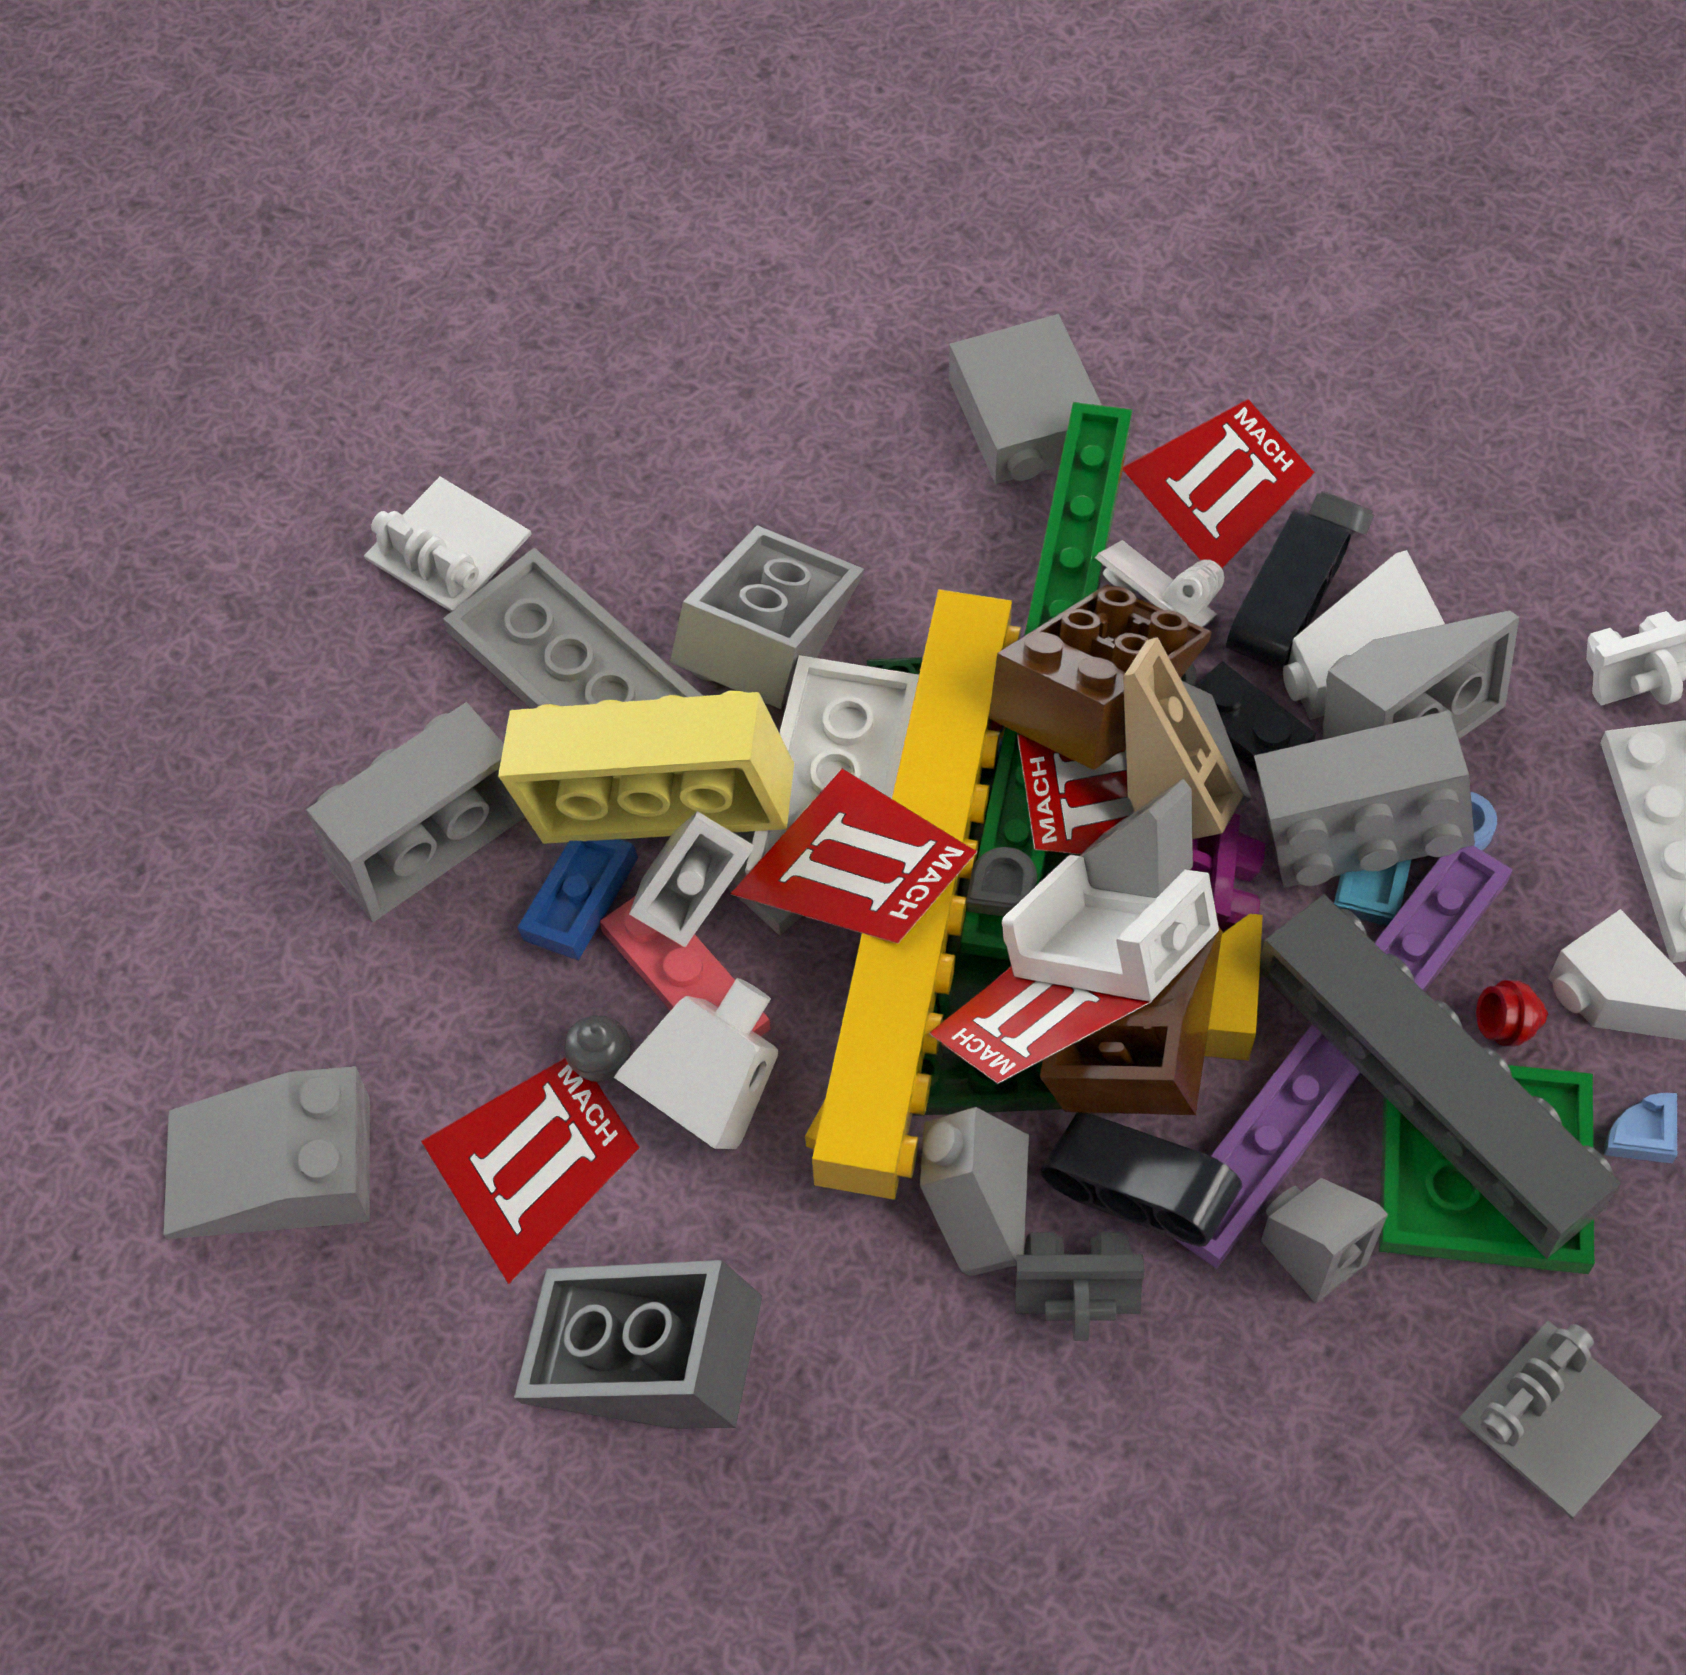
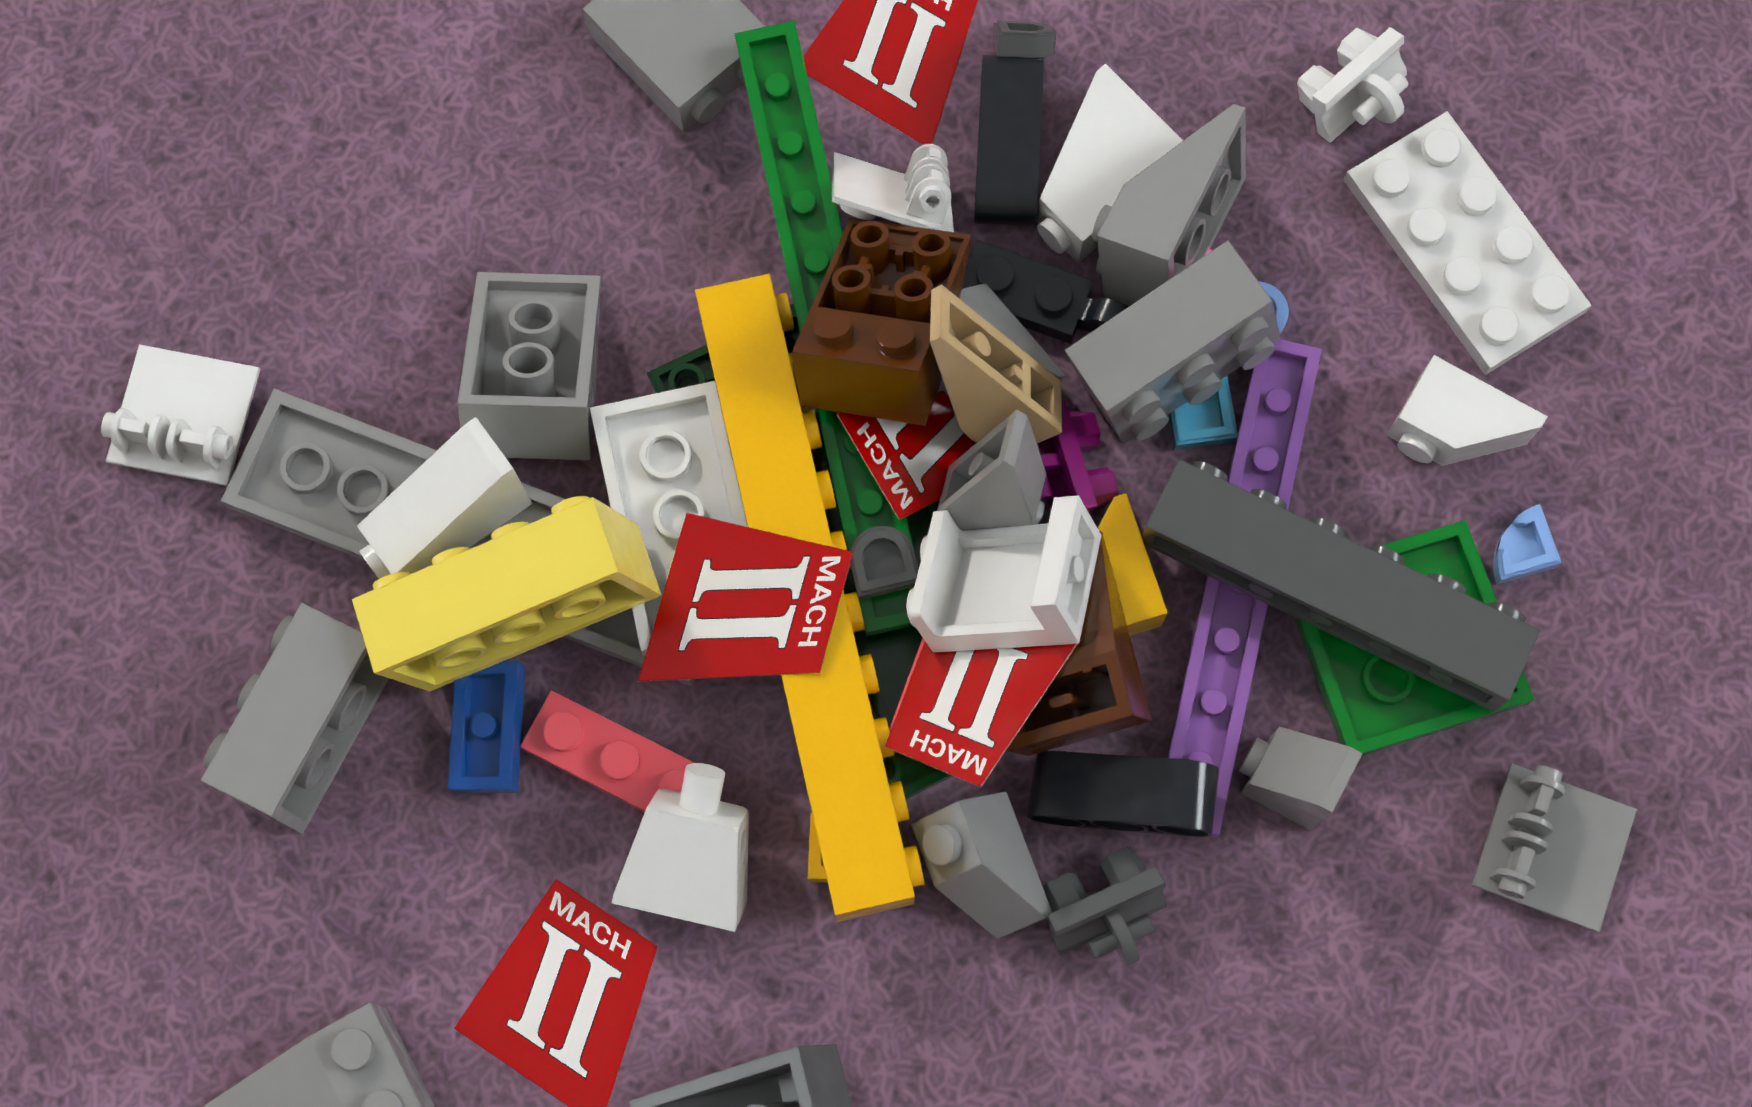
camera: 25 degrees left, 15 degrees up
(597, 1047) = (577, 872): dark grey plate -> none
(636, 664) = (444, 504): none -> white slope
(689, 877) = (591, 685): white slope -> none
(1510, 1013) = (1371, 489): red plate -> none

